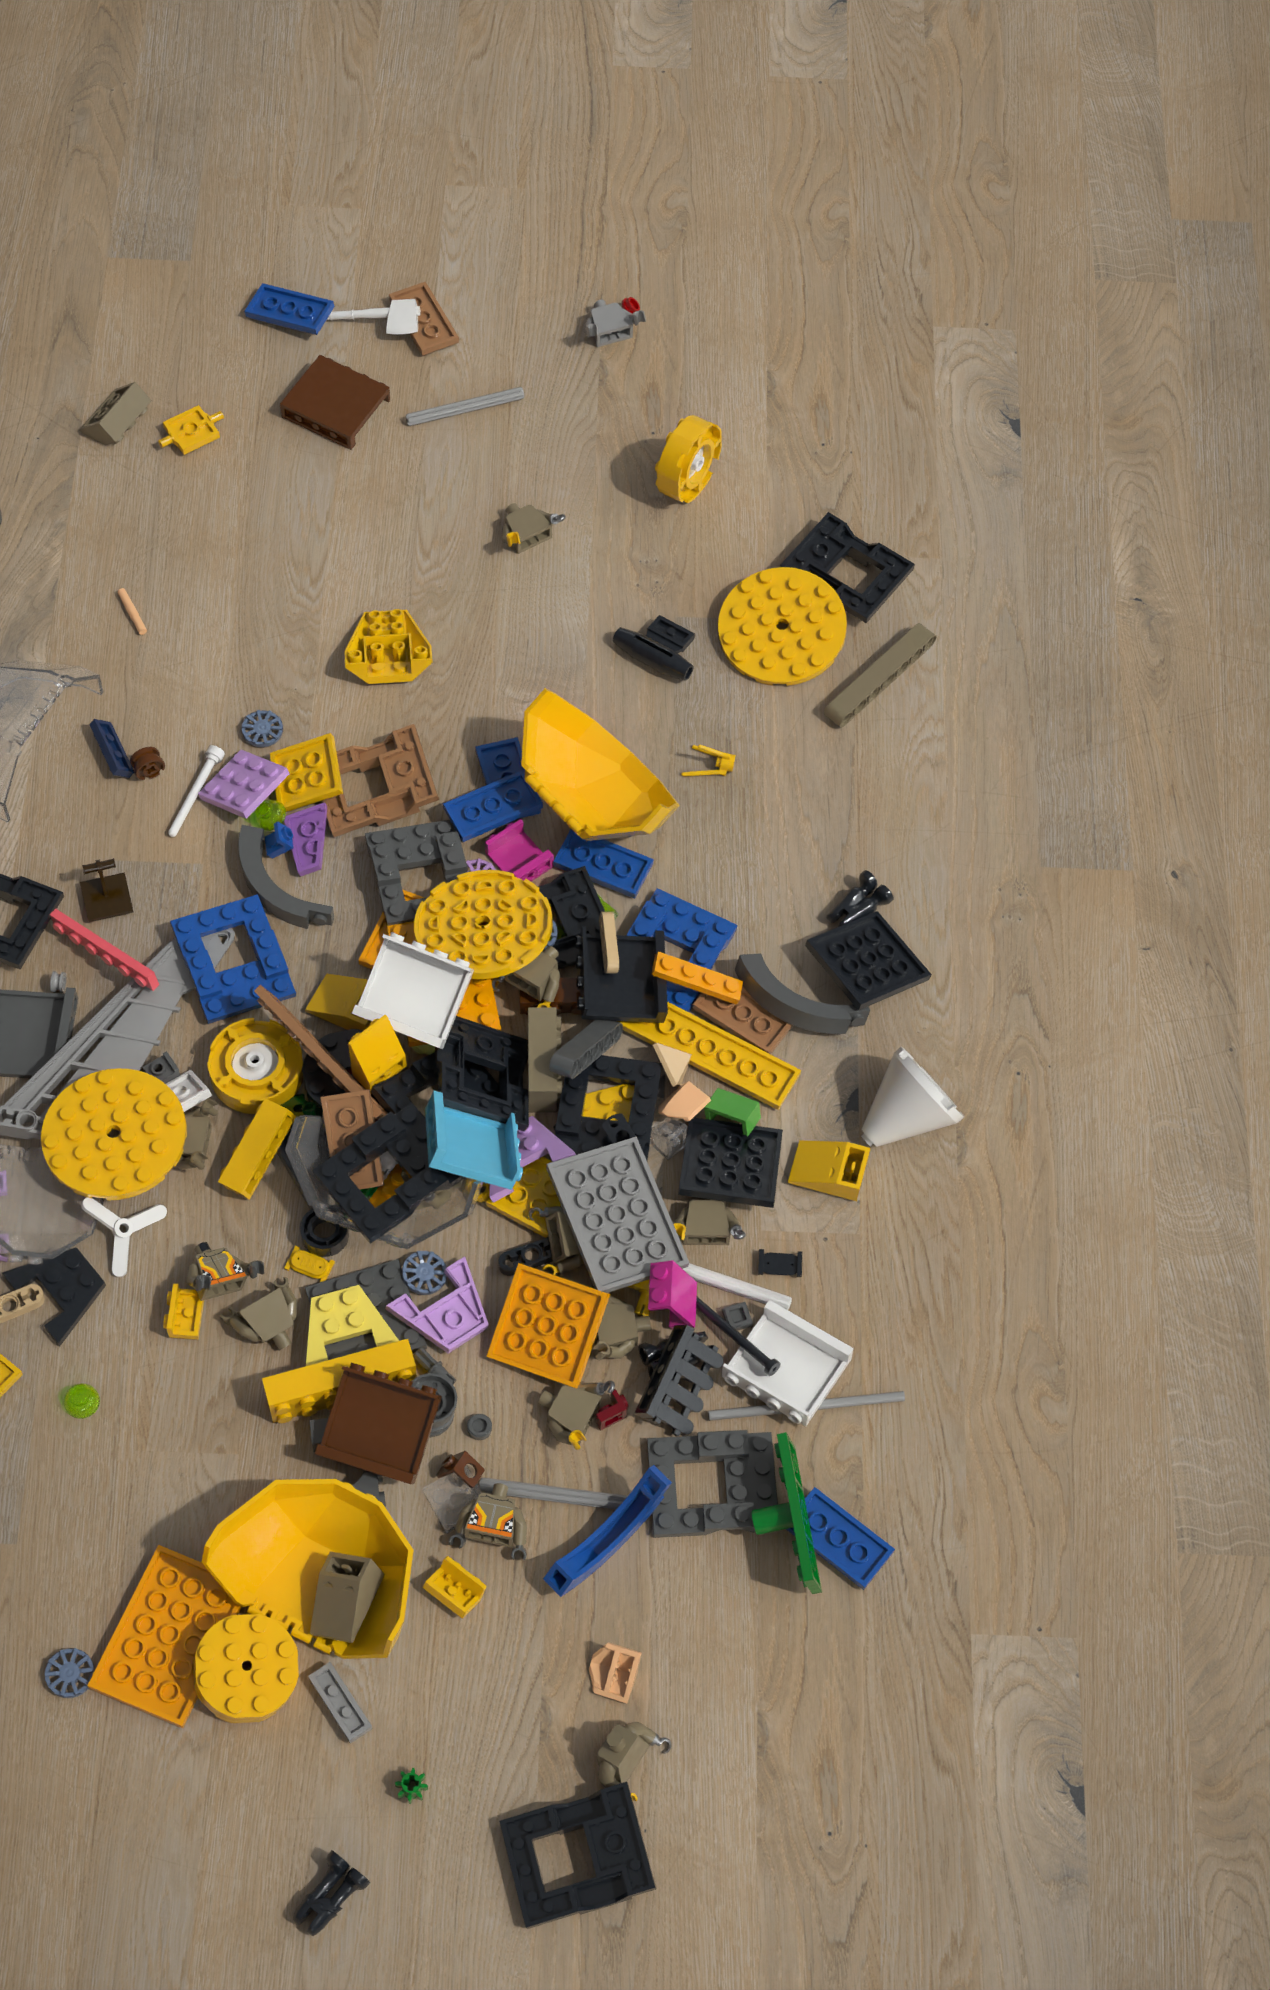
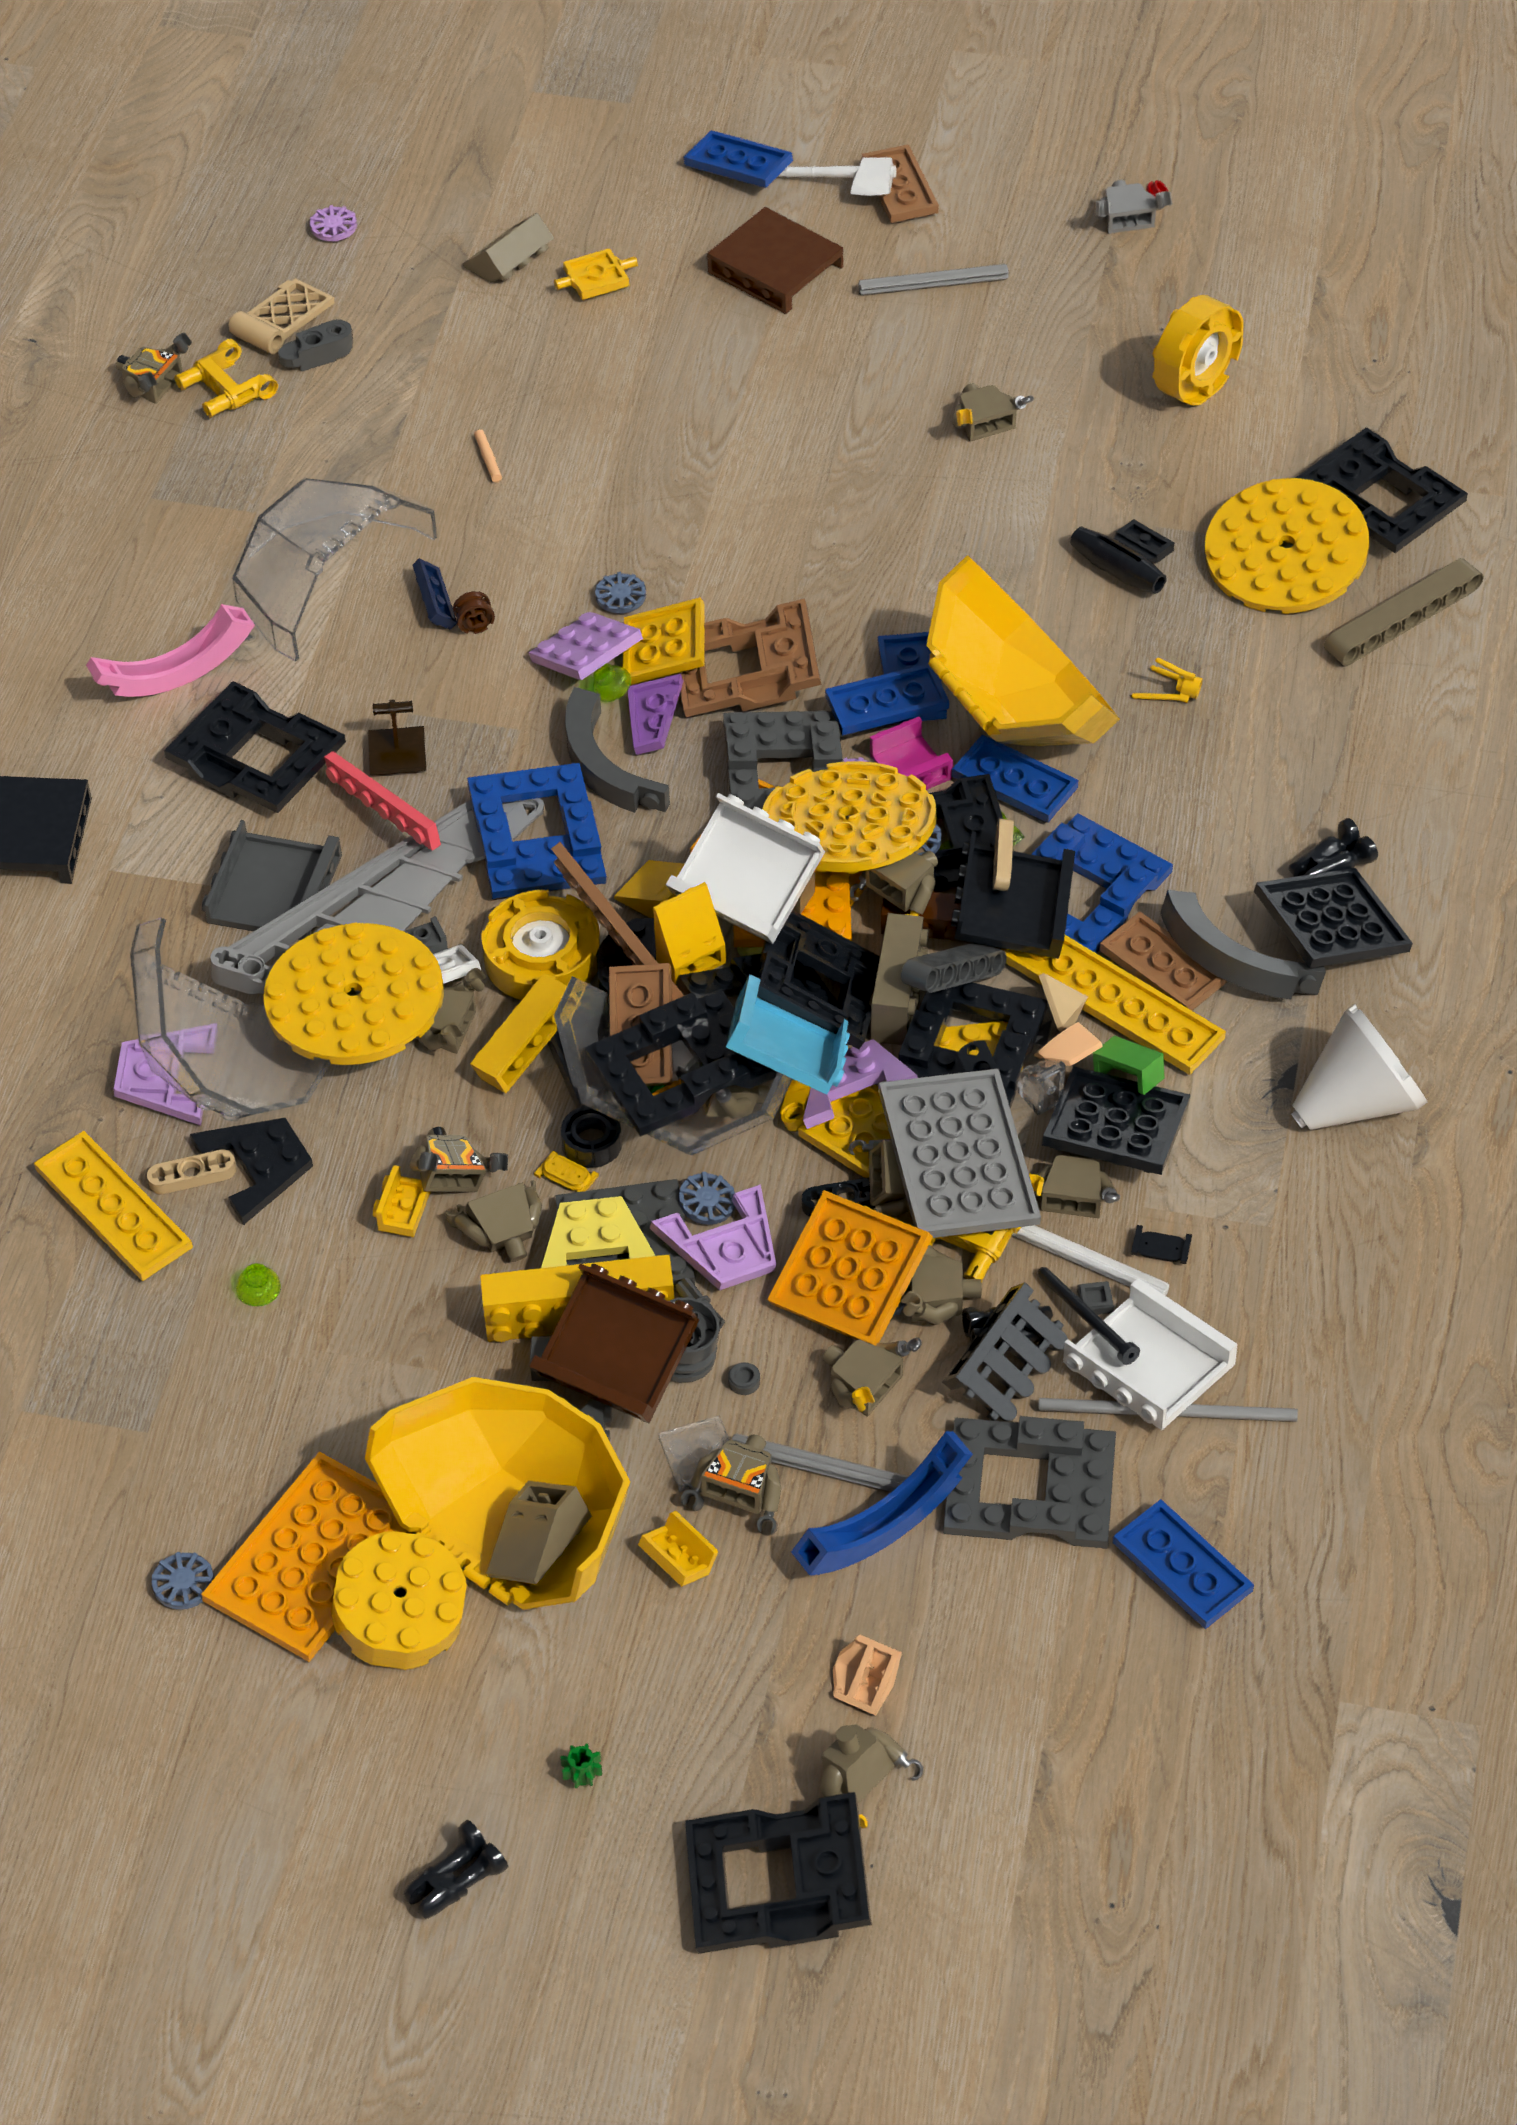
camera: 15 degrees right, 10 degrees down
(58, 982) = (320, 831): light grey bush -> none
(121, 1239) = (342, 1114): white piece -> none
(213, 756) = (555, 615): white piece -> none
(279, 841) = (618, 711): blue bracket -> none
(340, 1702) = (510, 1660): light grey plate -> none
(387, 648) = (788, 522): yellow wedge -> none
(457, 1463) = (707, 1412): reddish brown bracket -> none
(610, 1414) = (916, 1383): dark red bracket -> none
(673, 1290) = (1014, 1239): dark pink panel -> none
(697, 978) = (1108, 908): light orange plate -> none
(791, 1515) = (1123, 1519): green plate -> none
(830, 1167) = (1246, 1143): yellow slope -> none

